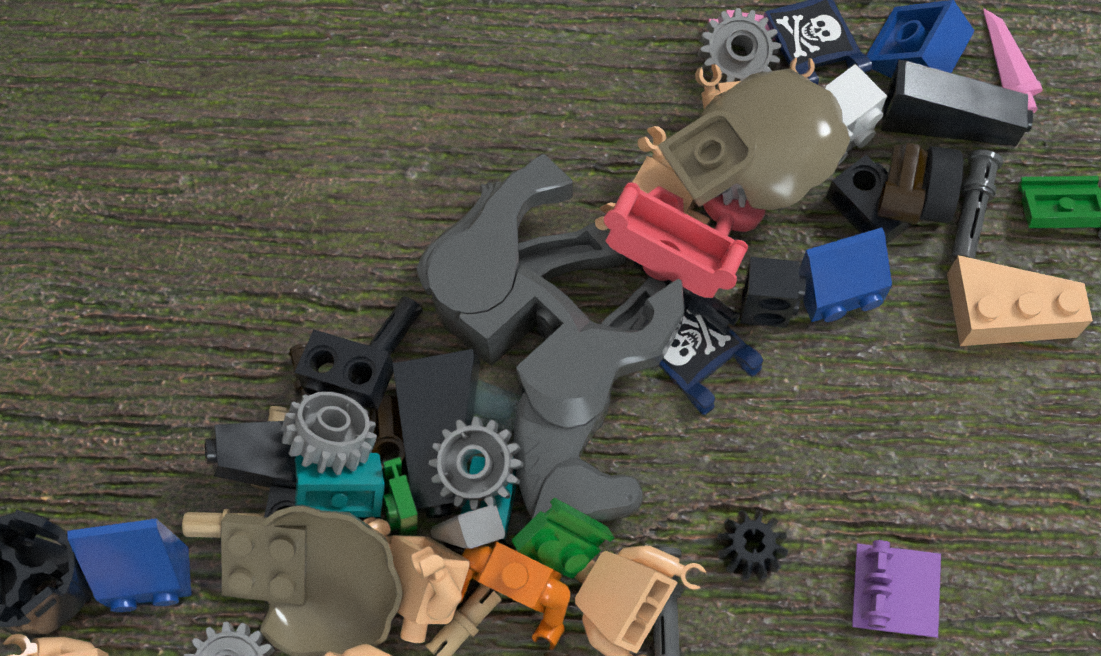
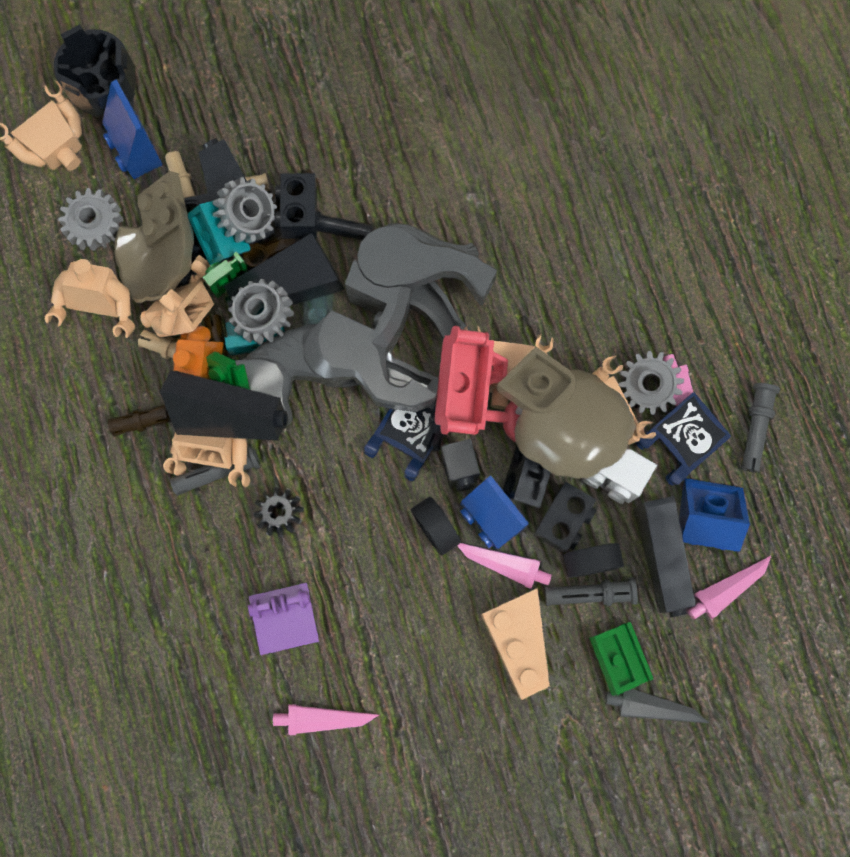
camera: 70 degrees right, 10 degrees up
(471, 528) = (215, 324): light grey slope -> none
(602, 551) = (220, 409): none -> black slope
(808, 222) = (525, 480): none -> black brick
(839, 349) = (436, 525): none -> black tyre
(903, 192) = (568, 533): dark brown piece -> none
(914, 284) = (514, 567): none -> bright pink bar
(1041, 598) = (311, 719): none -> bright pink bar

